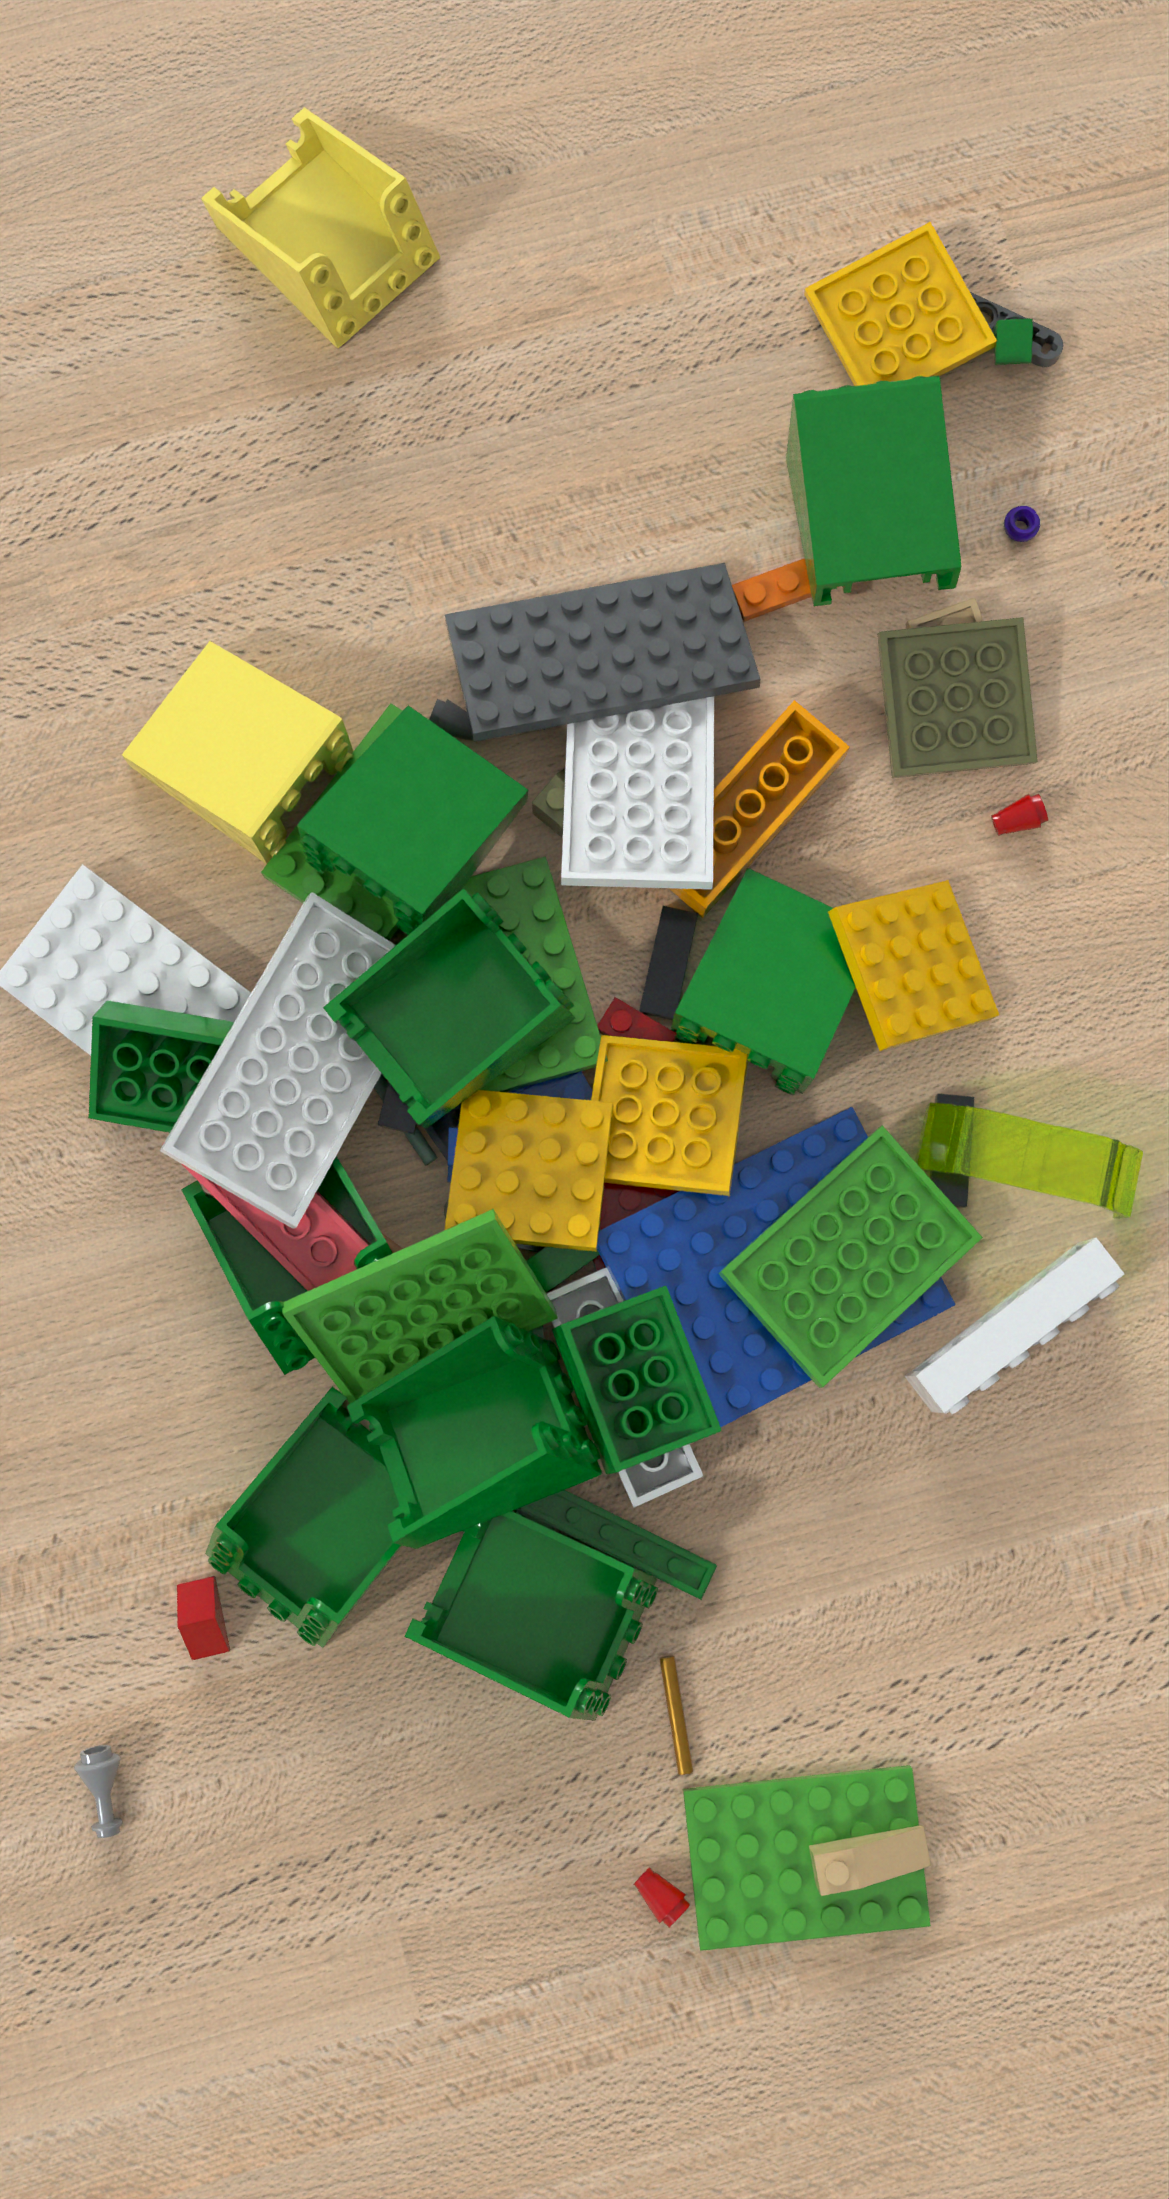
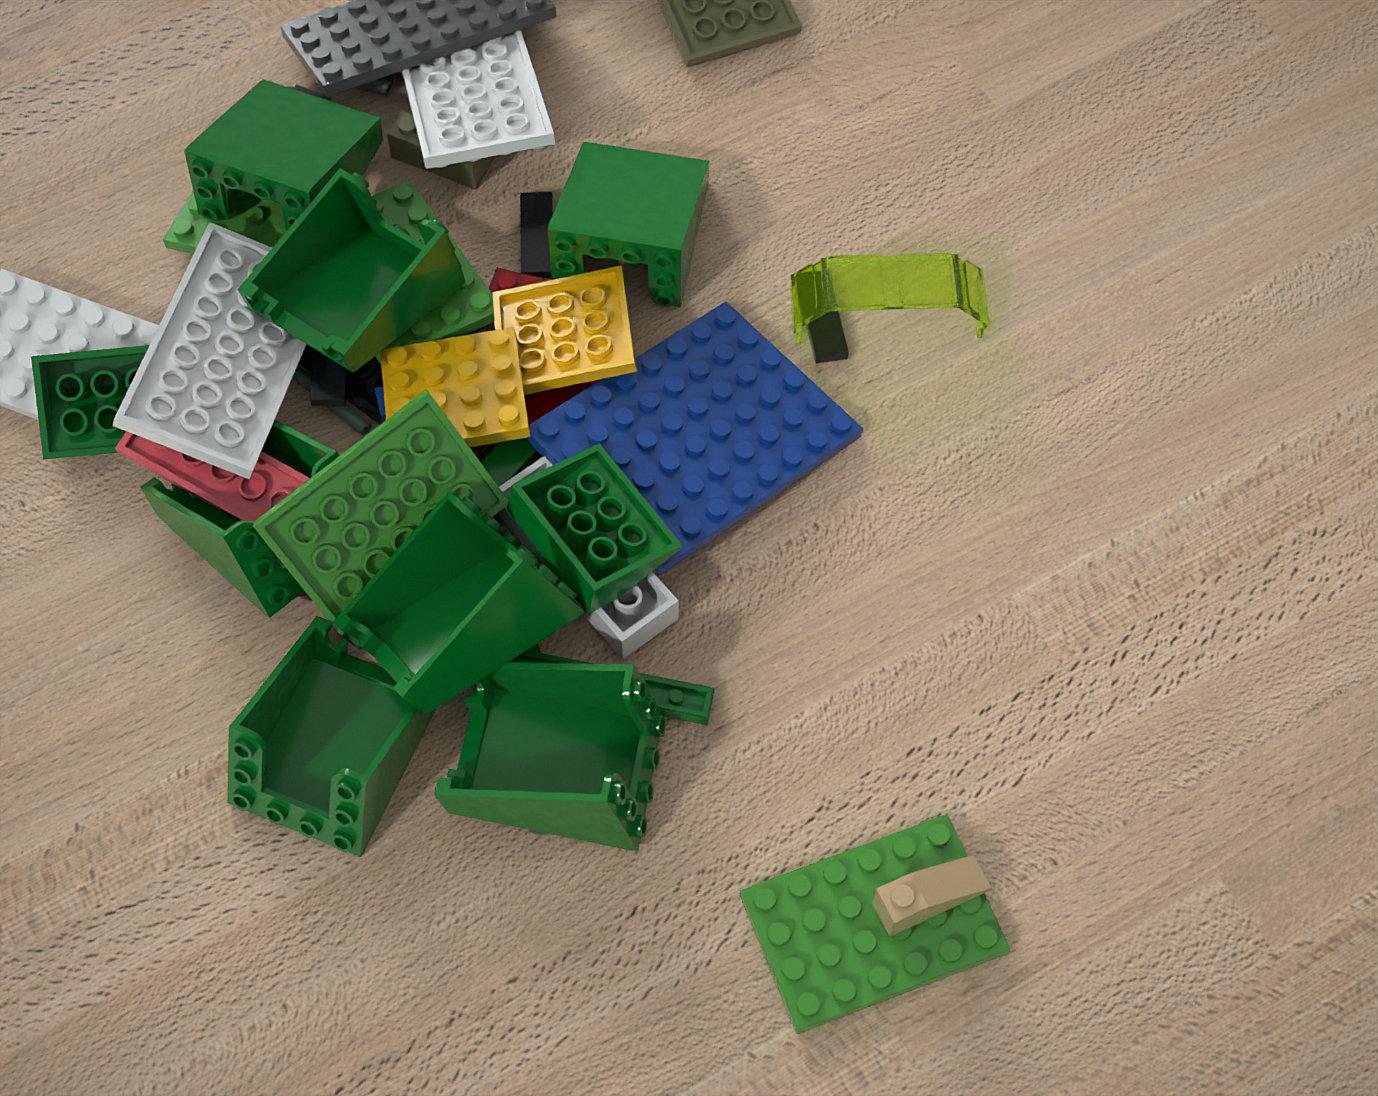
camera: 15 degrees left, 20 degrees down
(98, 1772) = (160, 1018): light grey piece -> none
(201, 1618) = (237, 859): red slope -> none
(238, 748) = (118, 150): light yellow windscreen -> none
(661, 1897) = (747, 991): red cone -> none
(676, 1715) = (714, 828): pearl gold bar -> none
(765, 795) = (578, 101): light orange brick -> none
(850, 1256) = (756, 399): bright green plate -> none
(913, 964) = (744, 178): yellow plate -> none
(1015, 1325) = (916, 425): white brick -> none
(1021, 815) = (801, 66): red cone -> none

